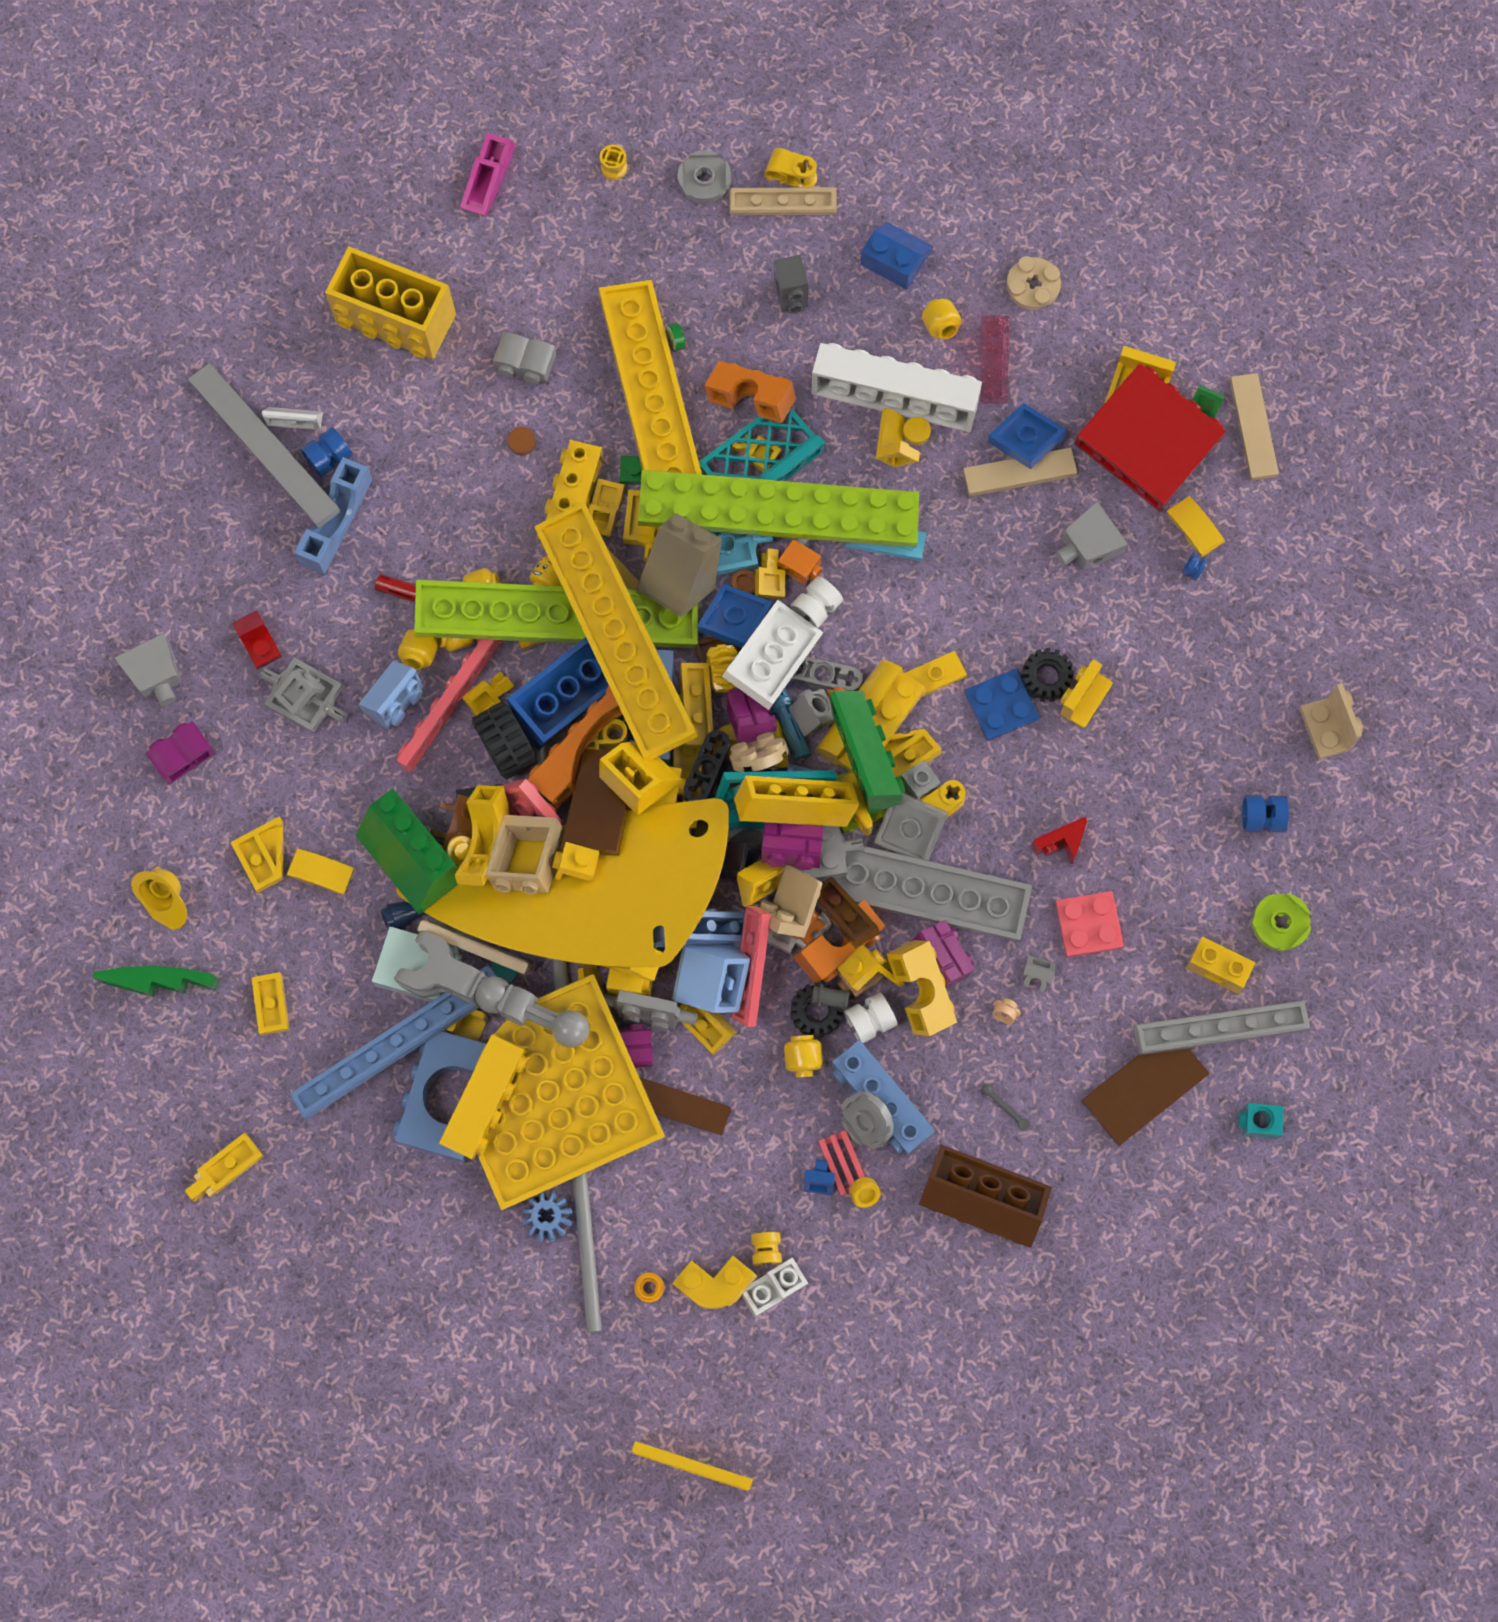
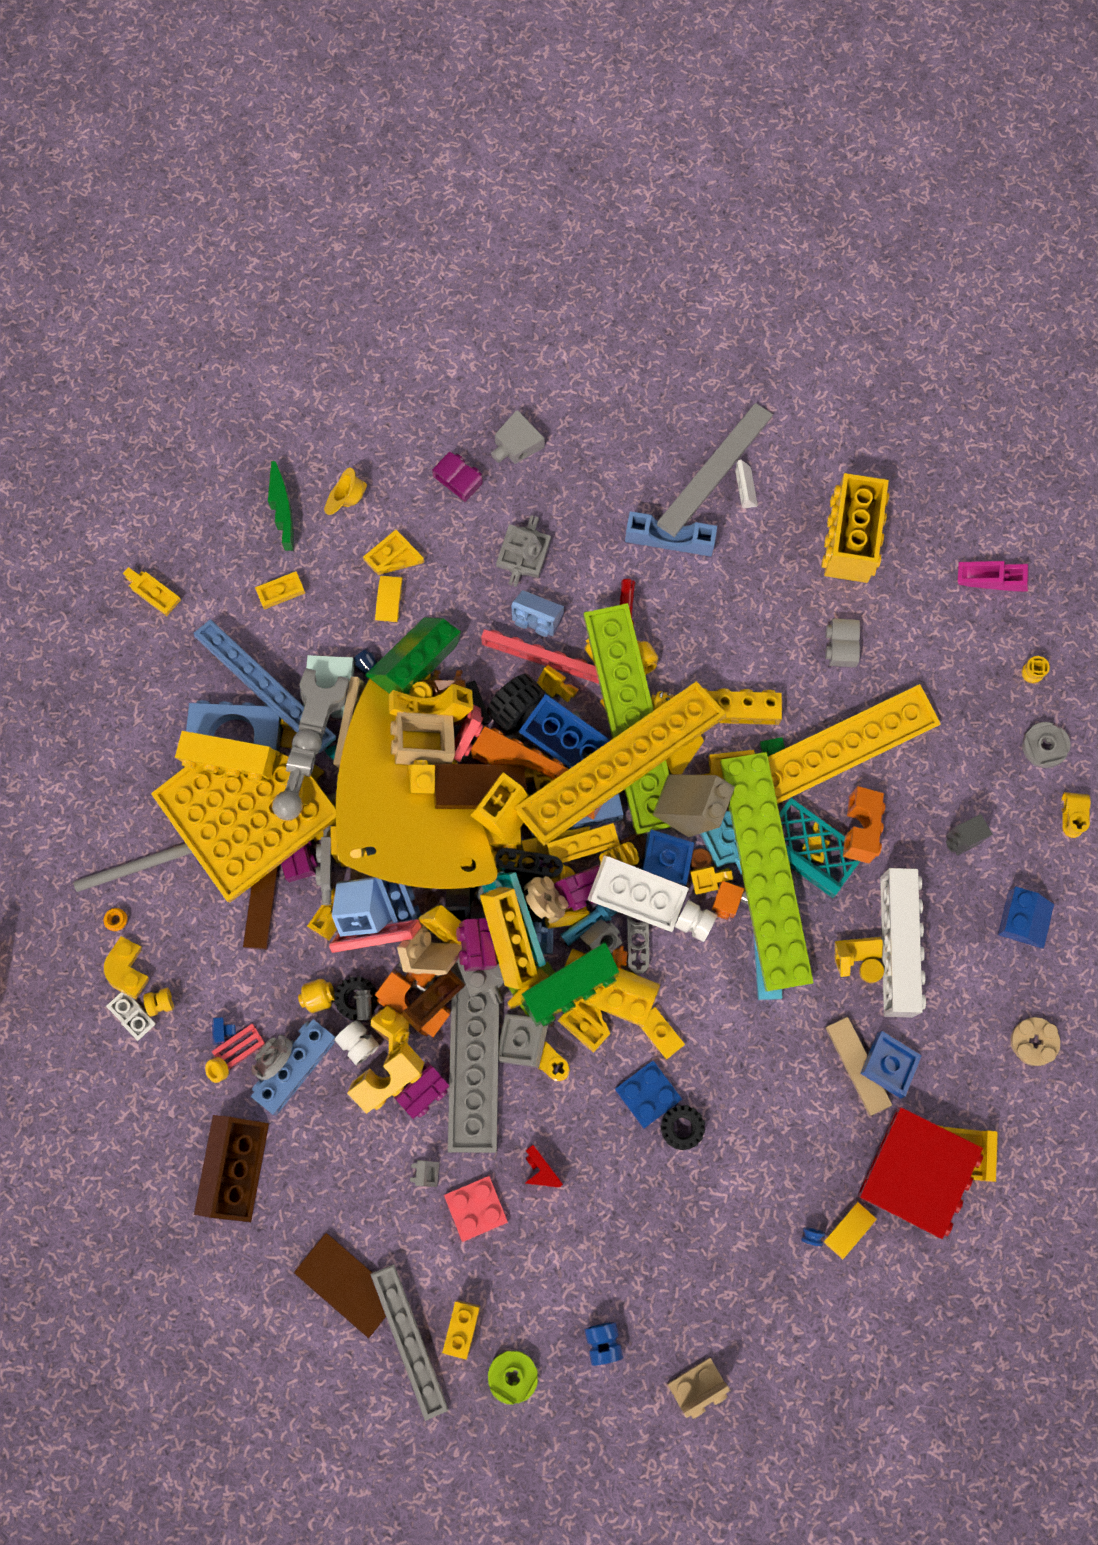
camera: 75 degrees right, 0 degrees up
(257, 639) = (561, 506): red slope -> none
(326, 451) = (722, 515): blue wheel -> none
(417, 651) = (575, 624): yellow head -> none
(521, 441) = (774, 658): dark orange tile -> none
(545, 1227) = (150, 837): medium blue gear -> none
(606, 505) = (735, 735): yellow slope -> none
(676, 336) = (897, 755): green tile -> none
(783, 201) = (1045, 814): tan tile -> none
(920, 781) = (561, 1038): light grey brick -> none
(941, 319) = (977, 968): yellow head -> none
(994, 359) = (953, 1021): clear pink slope -> none
(1006, 1007) = (387, 1153): light nougat plate -> none
(1023, 1123) = (298, 1188): dark grey hinge -> none
(1086, 696) = (672, 1165): yellow bracket -> none
(1091, 540) = (812, 1140): light grey torso -> none
(1208, 400) = (968, 1218): green plate -> none
(1254, 427) = (959, 1265): tan tile -> none
(1273, 1116) = (335, 1403): teal brick -> none

